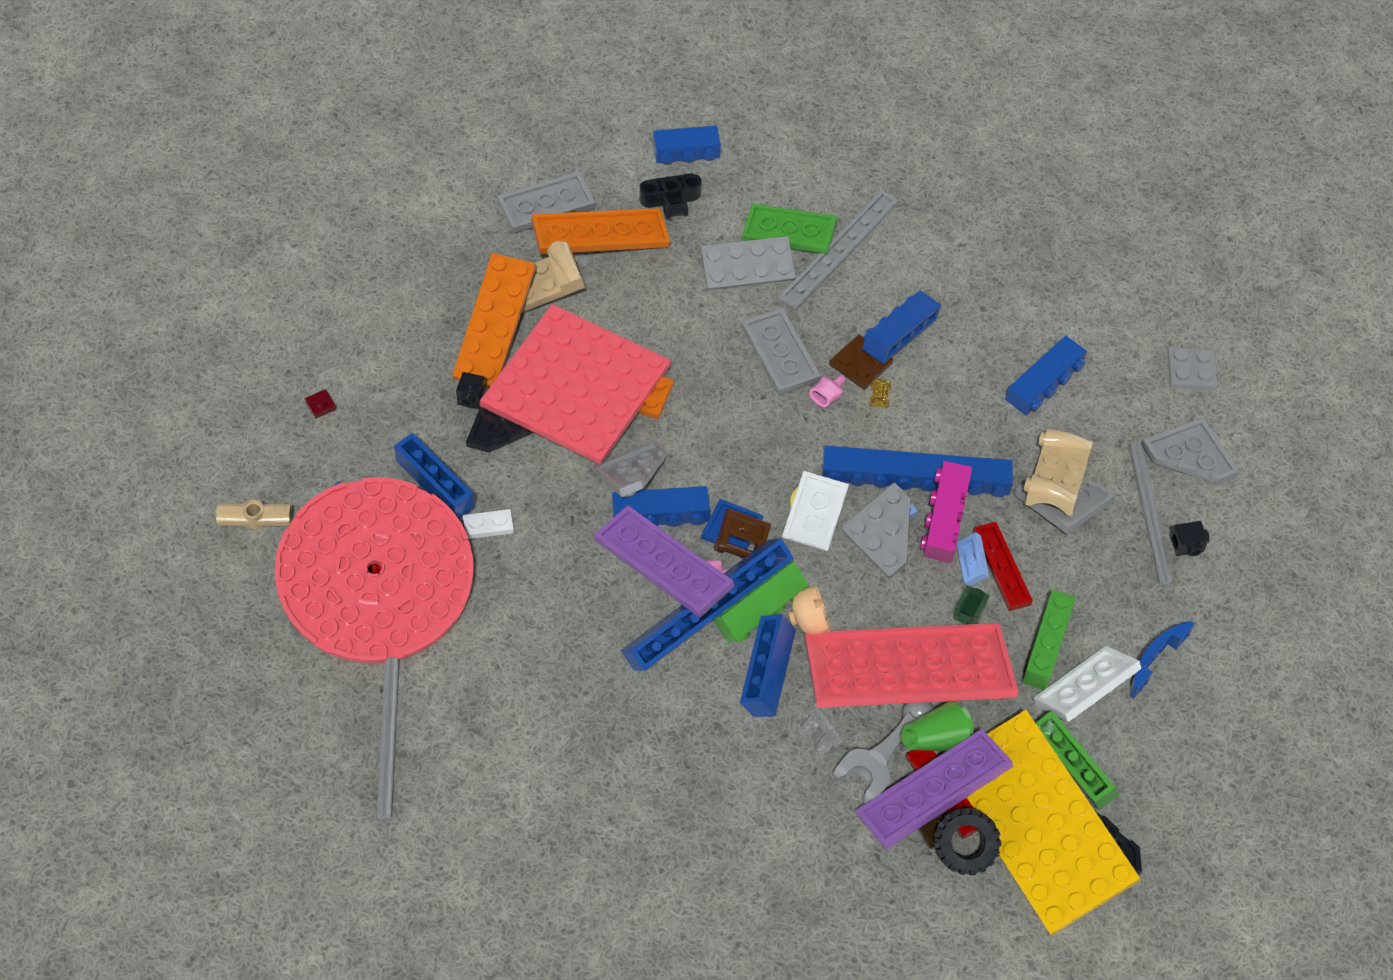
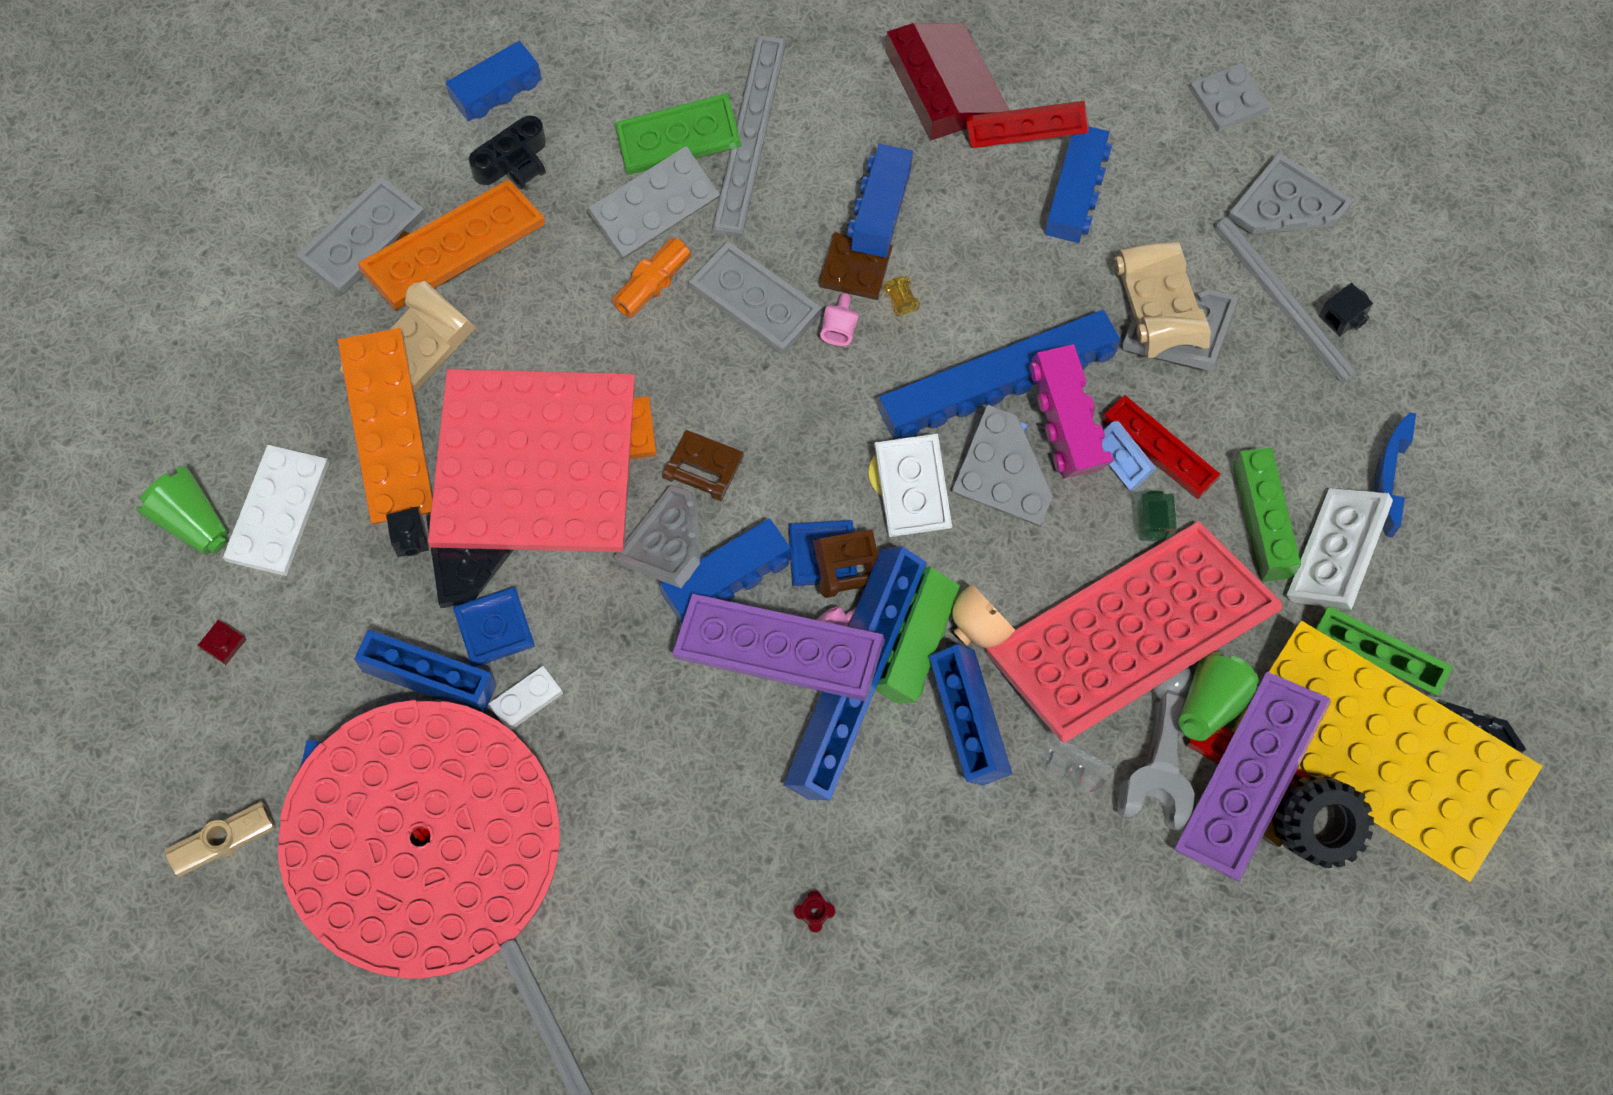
camera: 25 degrees left, 10 degrees up
(340, 314) = (183, 511): none -> bright green cone
(398, 342) = (276, 510): none -> white plate
(493, 472) = (493, 627): none -> blue tile
(596, 729) = (814, 901): none -> dark red plate
(690, 433) = (705, 456): none -> reddish brown plate
(718, 308) = (651, 277): none -> orange piece
(995, 269) = (942, 75): none -> dark red slope
(1031, 321) = (1028, 124): none -> red plate

